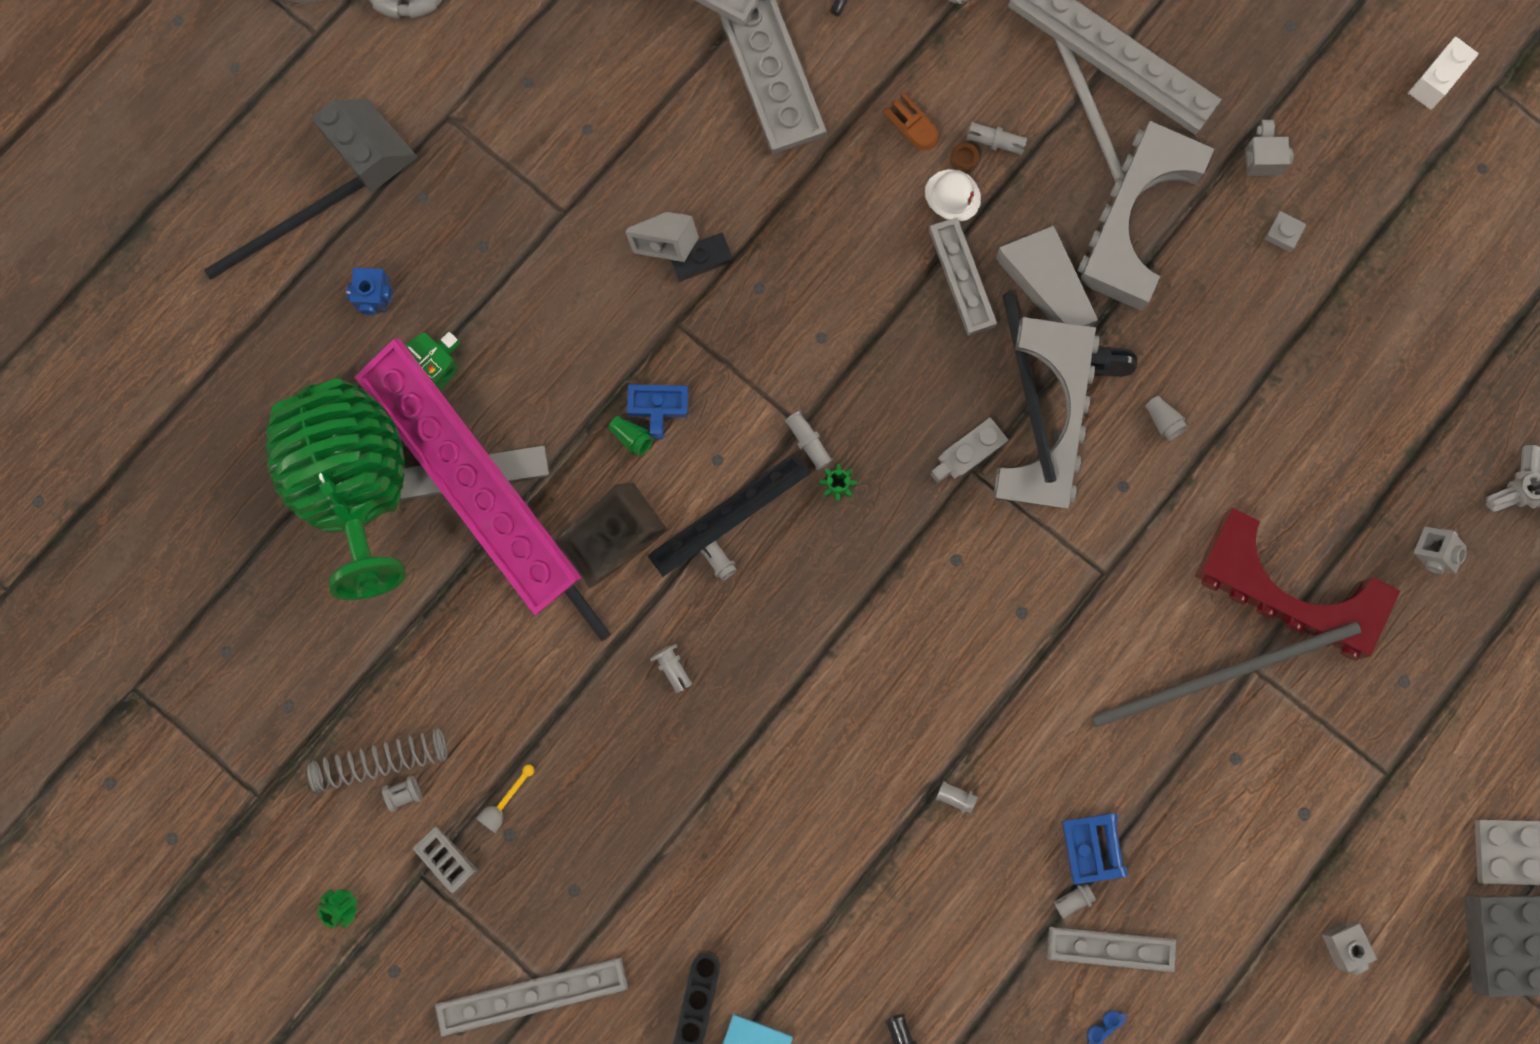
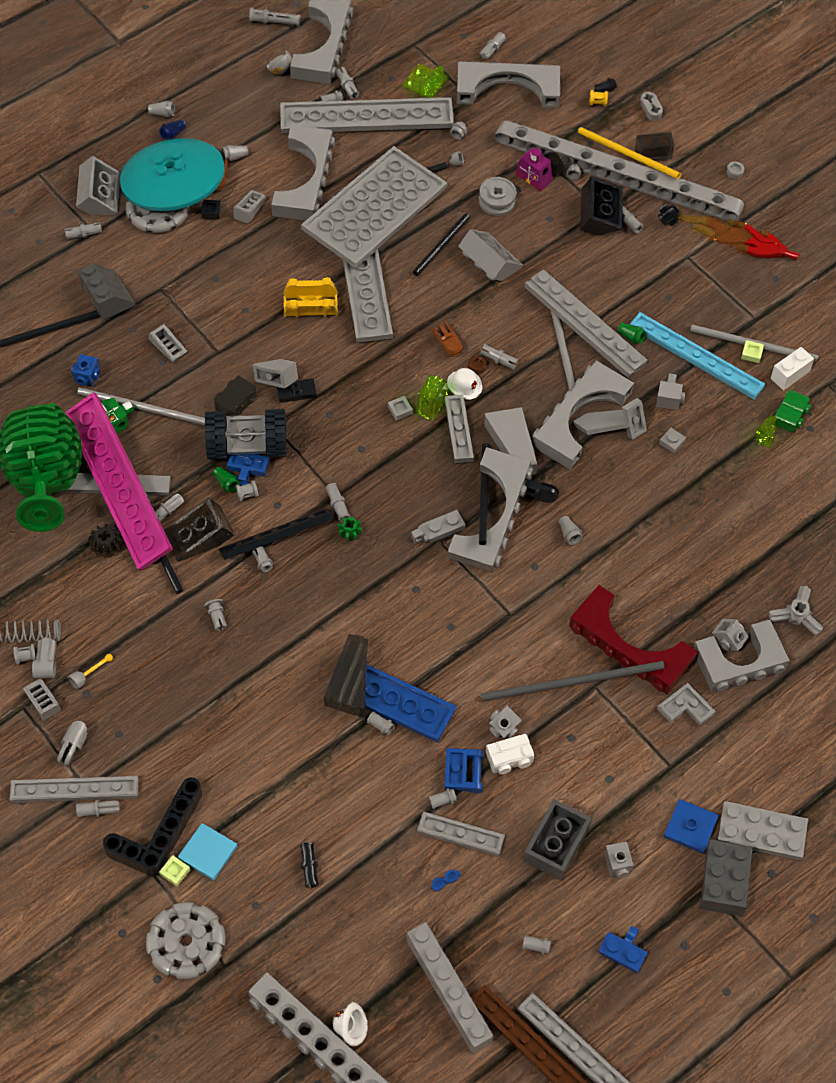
camera: 10 degrees right, 20 degrees down
(300, 37) = (83, 230): none -> light grey pin
(436, 805) = (45, 663): none -> light grey piece
(466, 571) = (105, 540): none -> clear smoke gear
(472, 193) = (164, 331): none -> light grey slope
(498, 333) = (146, 407): none -> light grey piece
(510, 919) = (73, 741): none -> light grey arm
(554, 501) = (170, 505): none -> light grey axle
(574, 1022) = (97, 808): none -> light grey axle
(610, 291) = (235, 397): none -> clear smoke brick
(645, 358) = (245, 434): none -> plate
(667, 449) = (247, 491): none -> light grey bush
(682, 82) = (310, 298): none -> yellow piece
(866, 258) = (400, 408): none -> light grey plate
(900, 743) = (349, 680): none -> clear smoke slope
(911, 230) = (434, 391): none -> clear neon green torso
(965, 754) = (407, 705): none -> blue plate
(1140, 764) = (511, 719): none -> light grey brick
(1157, 810) = (510, 754): none -> white brick
(1189, 56) = (633, 333): none -> green cone
(1192, 218) = (630, 417): none -> light grey piece
(1258, 938) = (557, 839): none -> dark grey brick
(1292, 76) = (699, 356): none -> medium azure tile
(1365, 36) = (741, 340): none -> light grey piece
(1376, 53) = (752, 351): none -> yellowish green plate
(1389, 666) = (688, 701): none -> light grey tile
(1421, 195) = (765, 431): none -> clear neon green bracket
(1438, 867) = (691, 826): none -> blue plate
(1455, 147) = (791, 411): none -> green brick
(1500, 573) = (722, 674): none -> light grey arch

